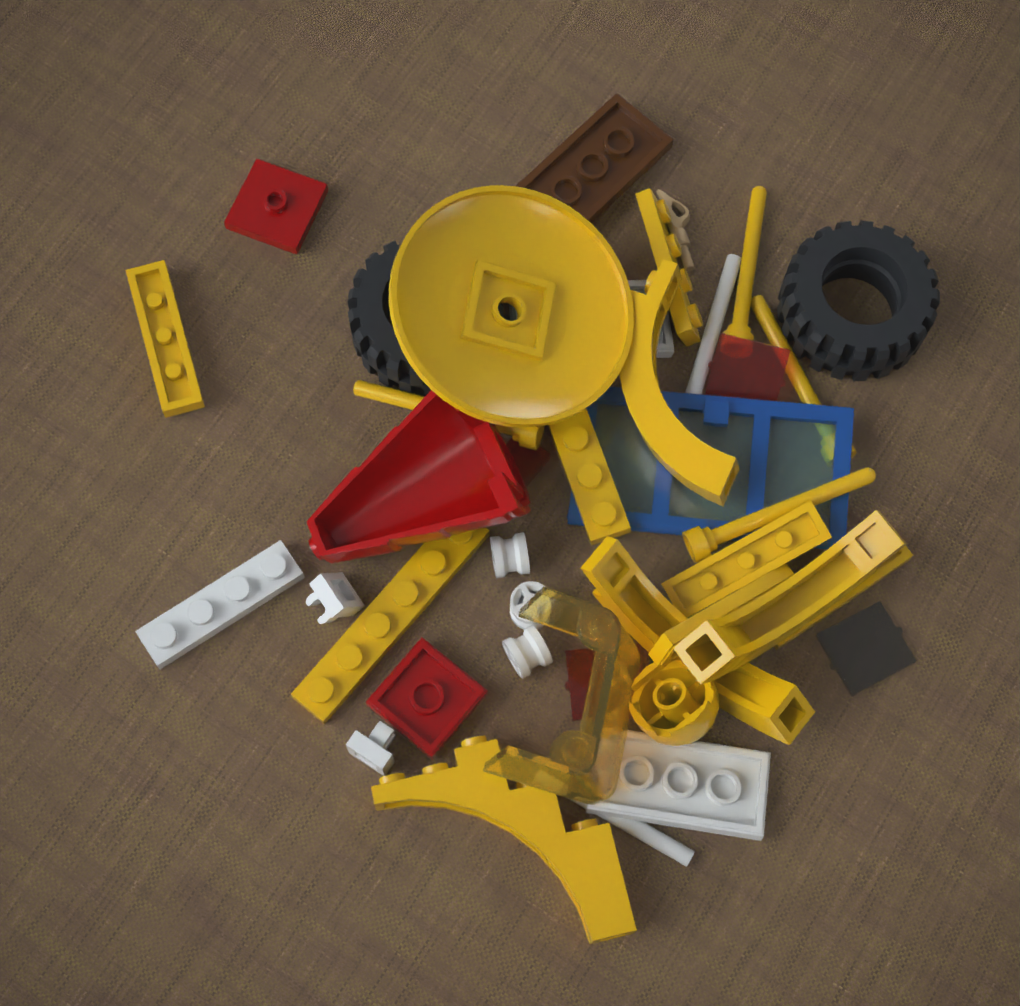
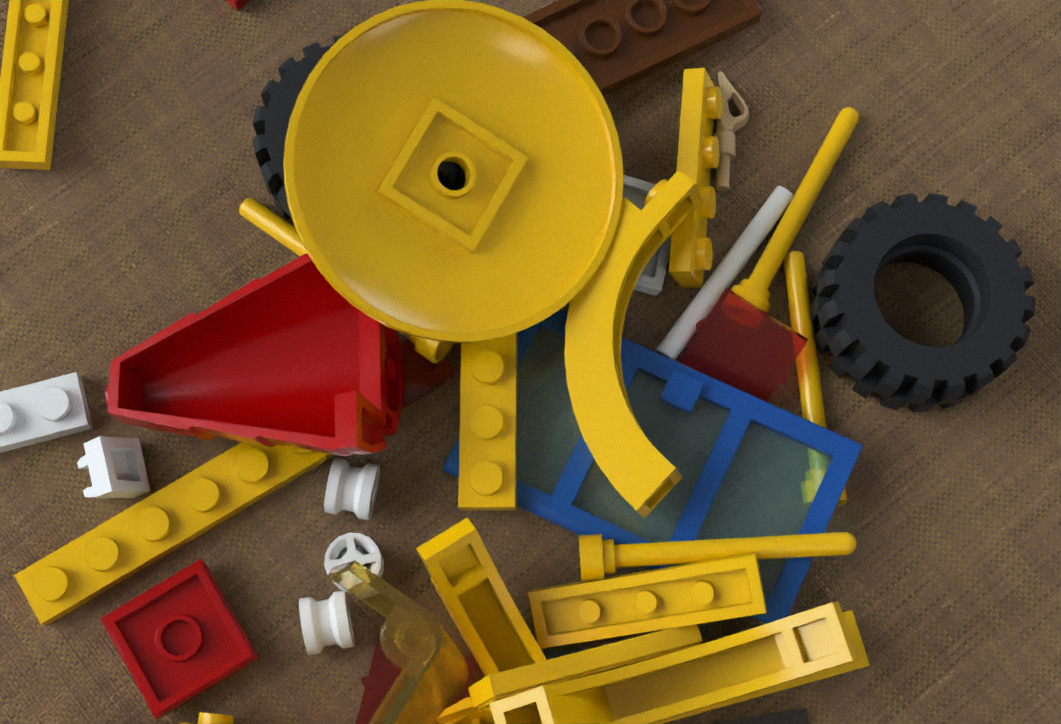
camera: 15 degrees right, 5 degrees up
(373, 749) = (86, 683): white tile -> none

